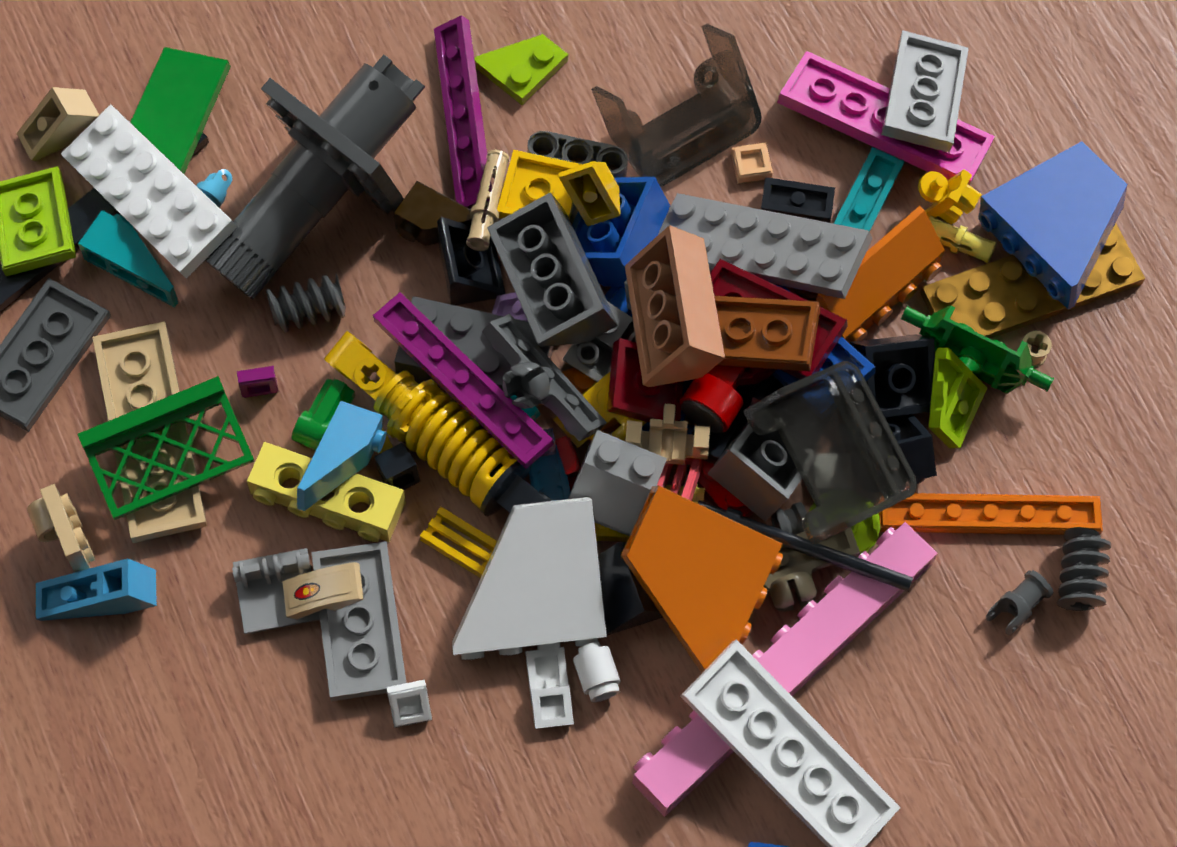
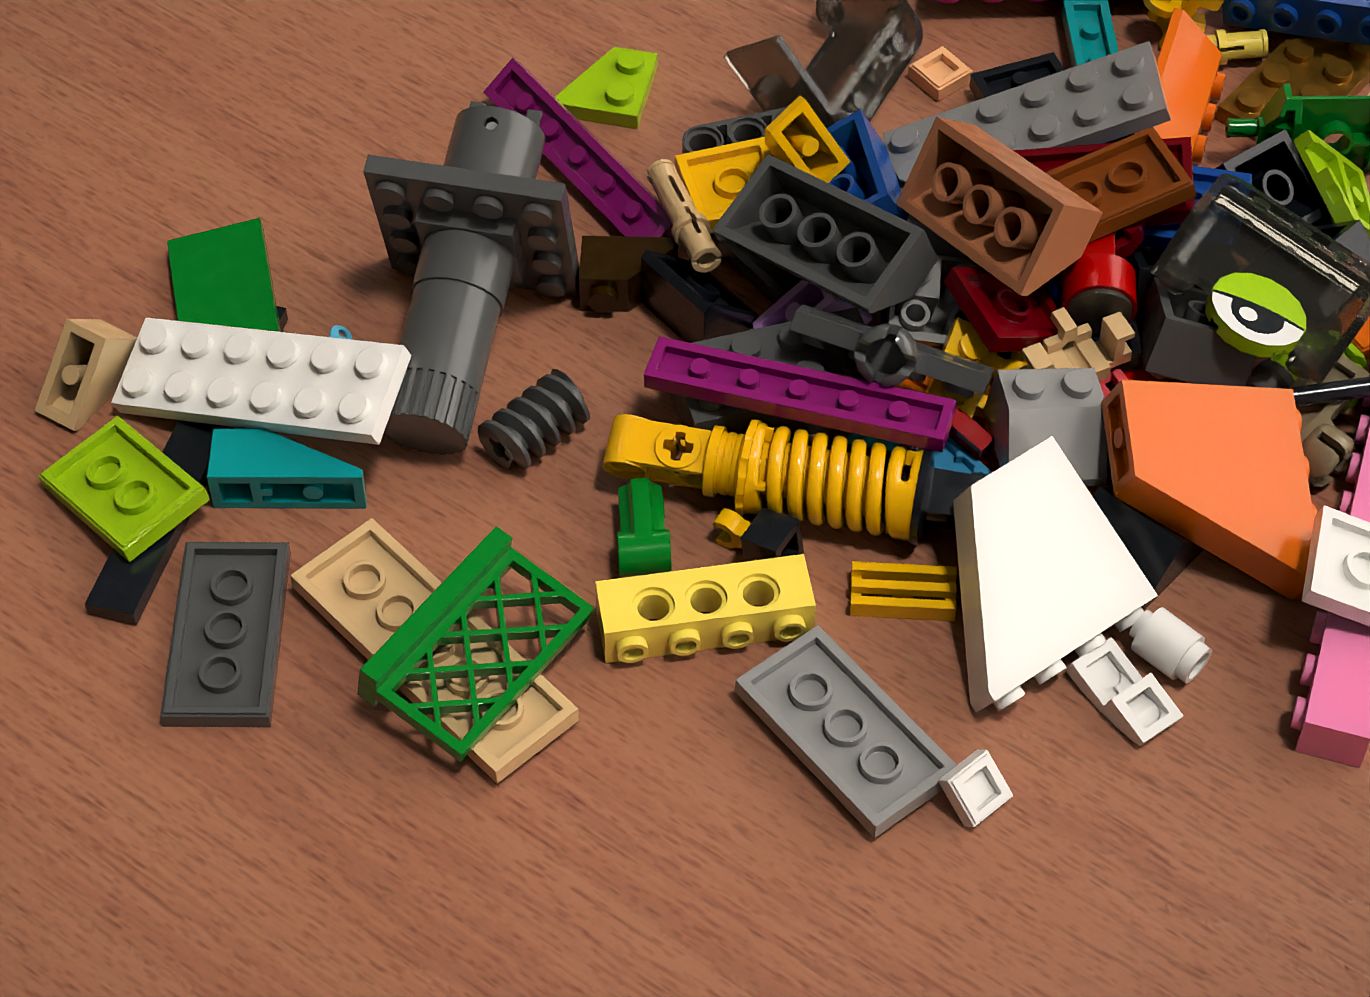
camera: 25 degrees left, 15 degrees down
(57, 519) = (404, 792): tan plate -> none
(97, 591) = (492, 855): dark azure slope -> none
(257, 381) = (535, 529): magenta tile -> none
(261, 589) = (718, 747): light grey hinge -> none
(323, 589) = (782, 706): tan slope -> none
(341, 453) = (706, 537): dark azure slope -> none
(795, 476) = (1256, 314): none -> tile

